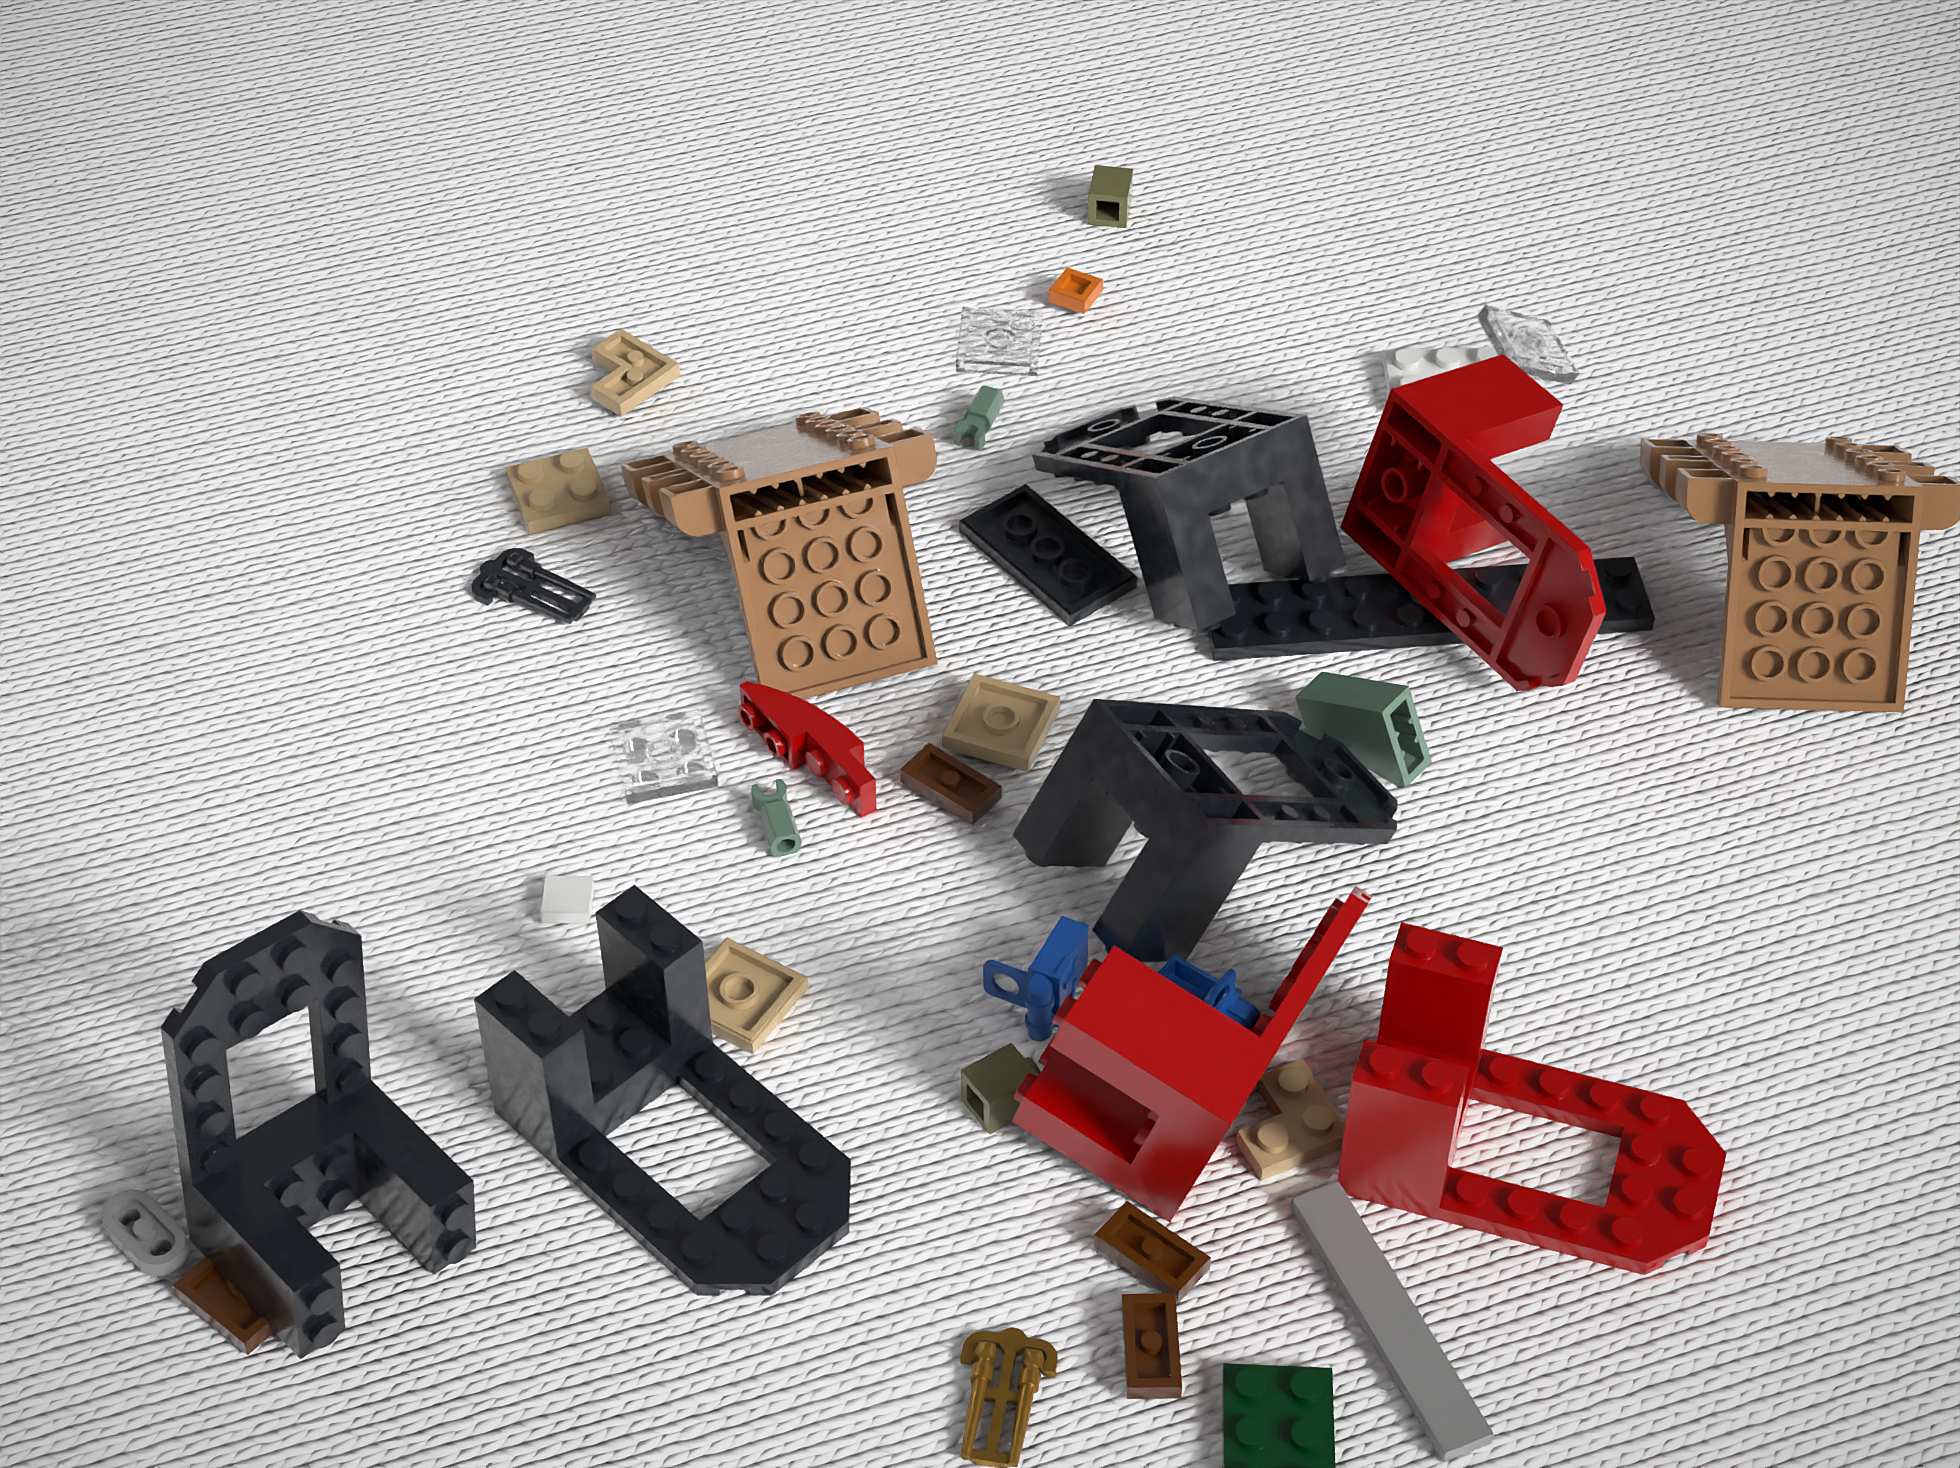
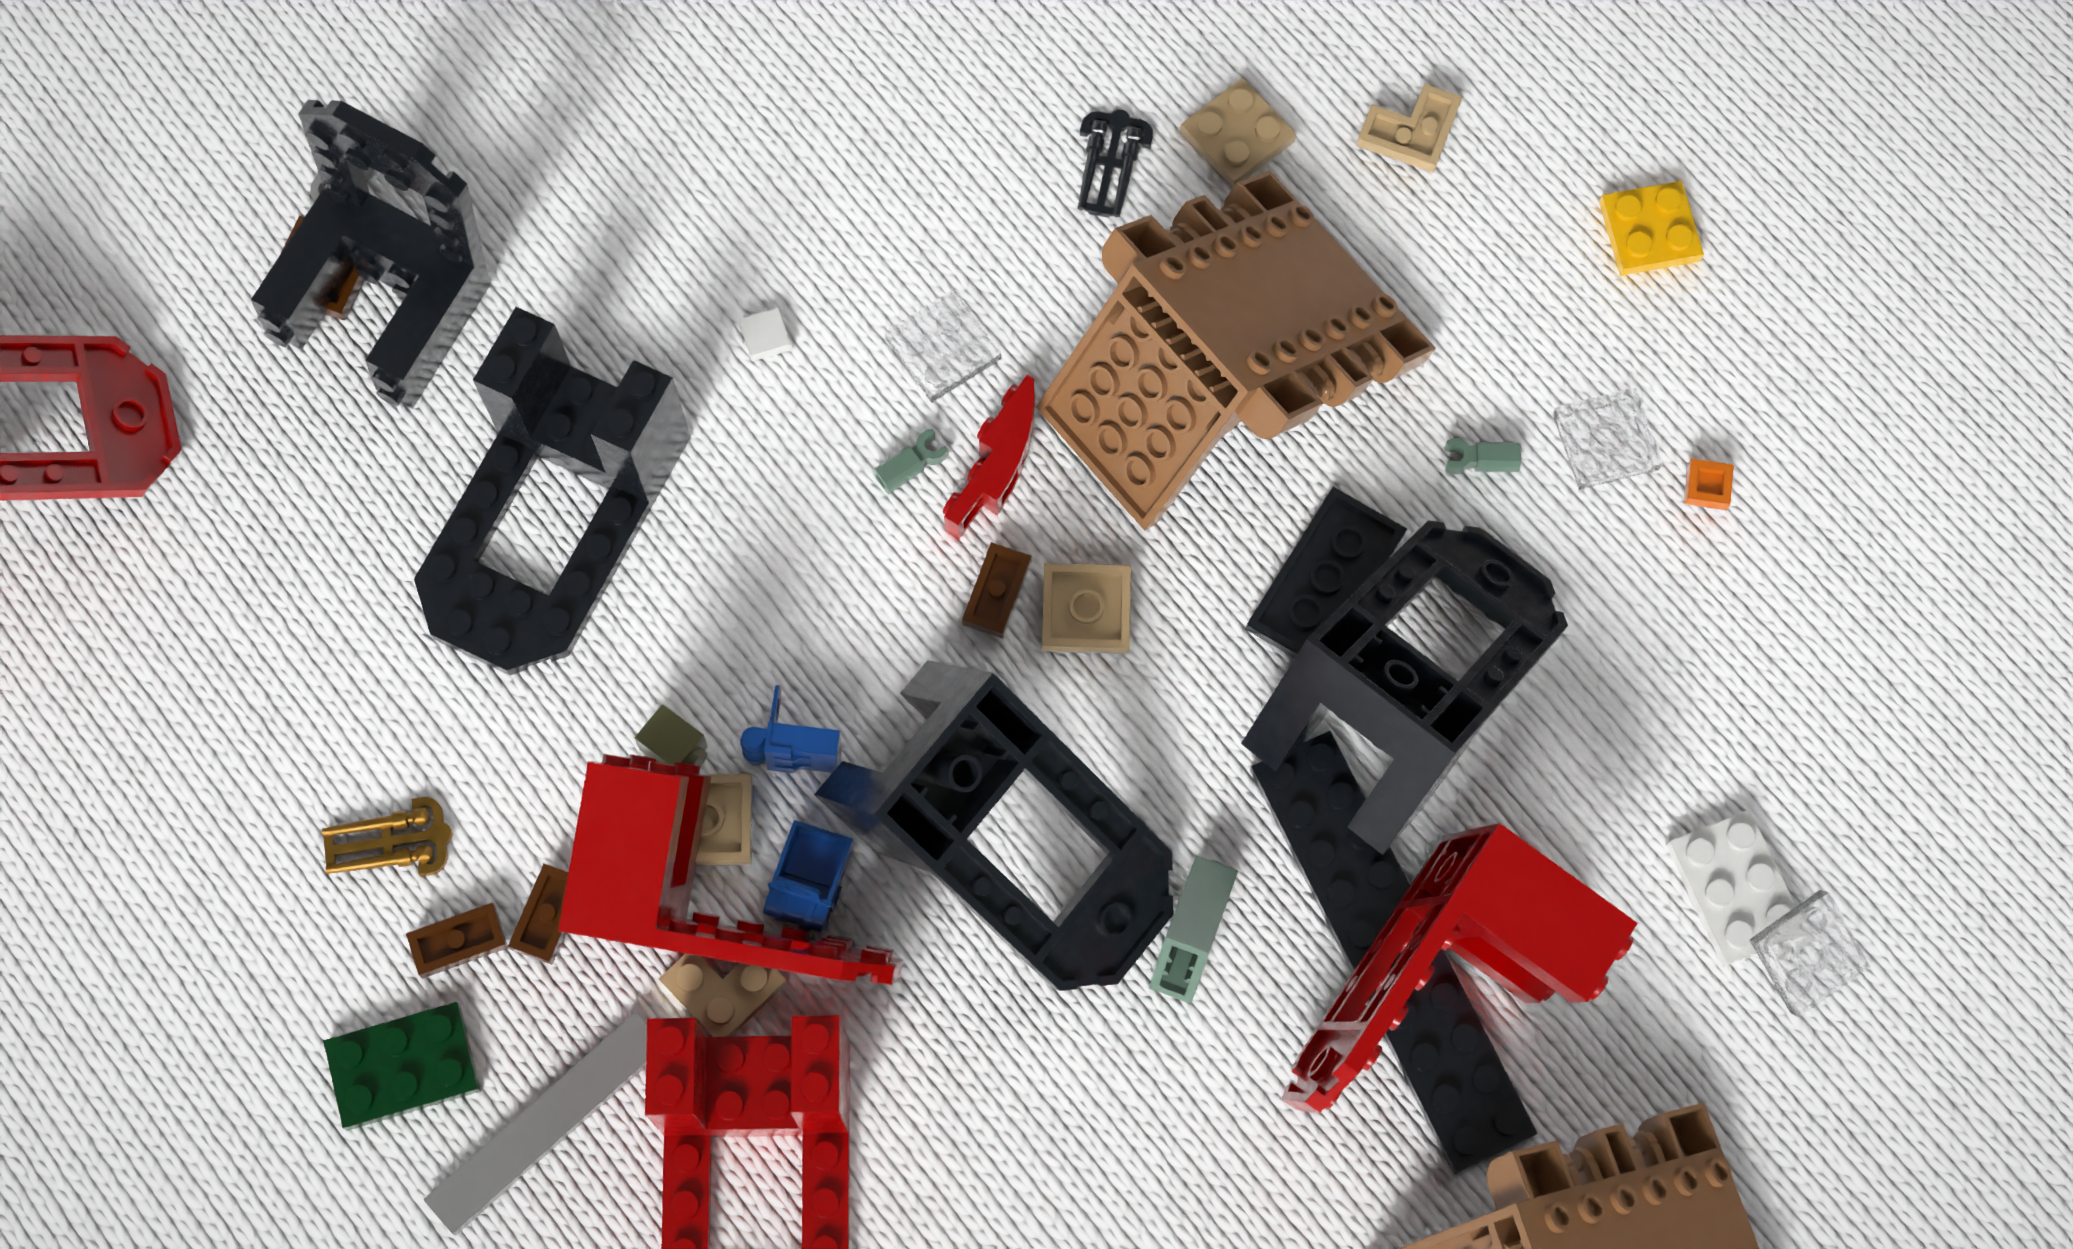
camera: 70 degrees right, 25 degrees up
(749, 994) = (712, 505): tan tile -> none
(813, 261) = (1651, 228): none -> yellow plate
(1110, 196) = (1871, 470): olive brick -> none

